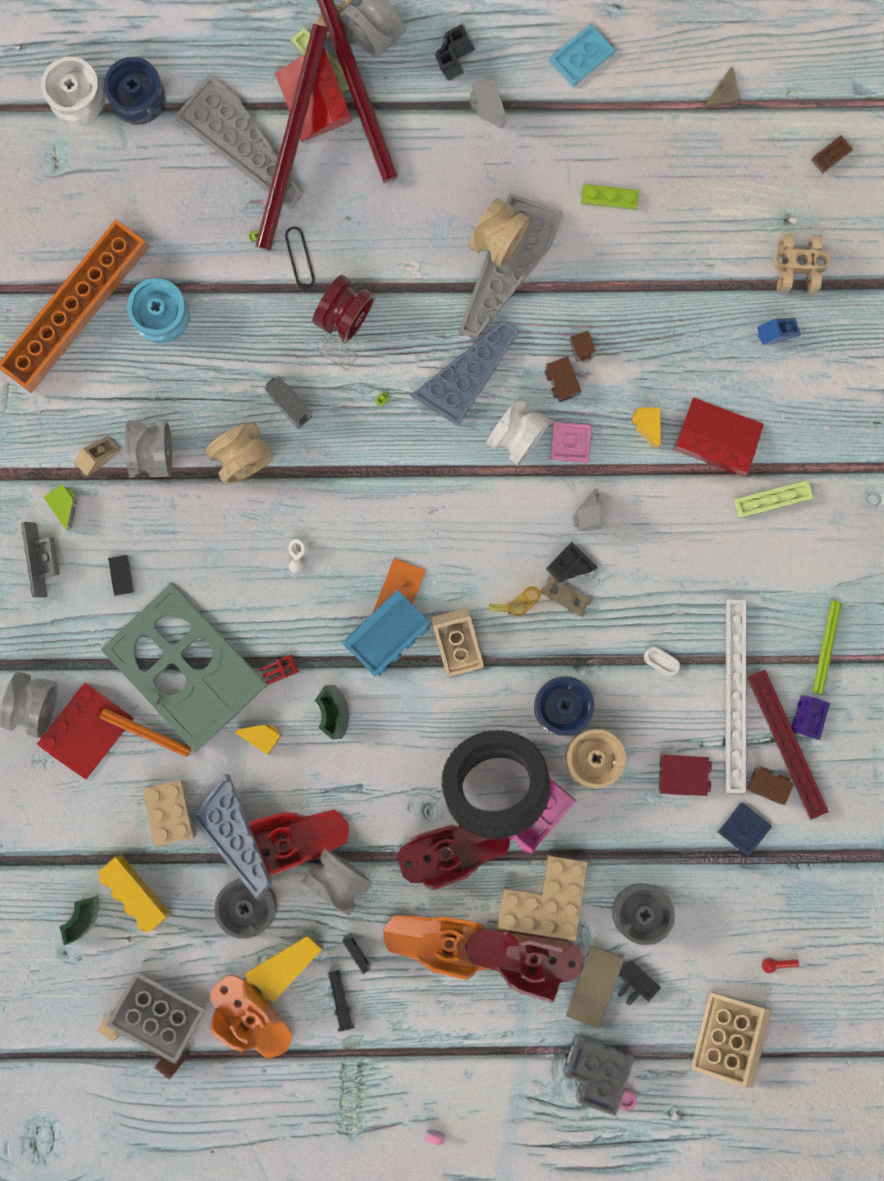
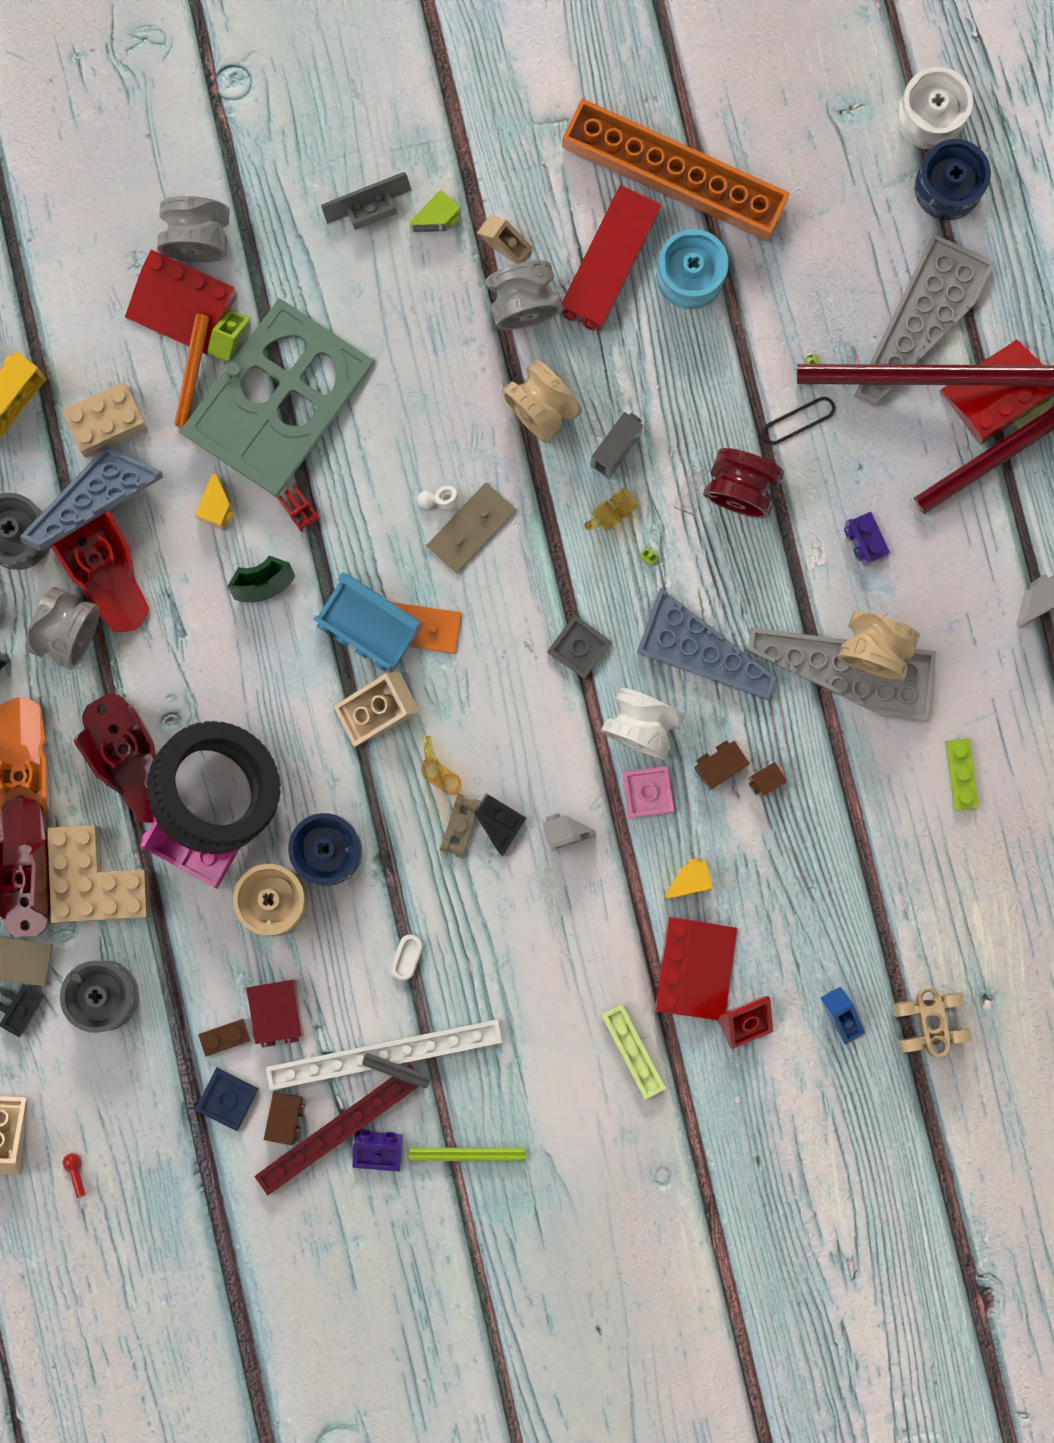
camera: 75 degrees right, 0 degrees up
(120, 575) = (370, 300): black tile -> none
(122, 696) = (228, 335): none -> lime slope
(133, 374) = (610, 258): none -> red brick
(326, 535) = (471, 528): none -> dark tan piece
(339, 419) = (610, 513): none -> clear yellow beam
(407, 226) = (866, 538): none -> dark purple bracket
(443, 470) = (579, 647): none -> dark grey tile
(695, 821) = (224, 1037): none -> reddish brown plate
(751, 687) = (396, 1070): none -> dark grey axle
(768, 405) = (747, 1021): none -> red slope

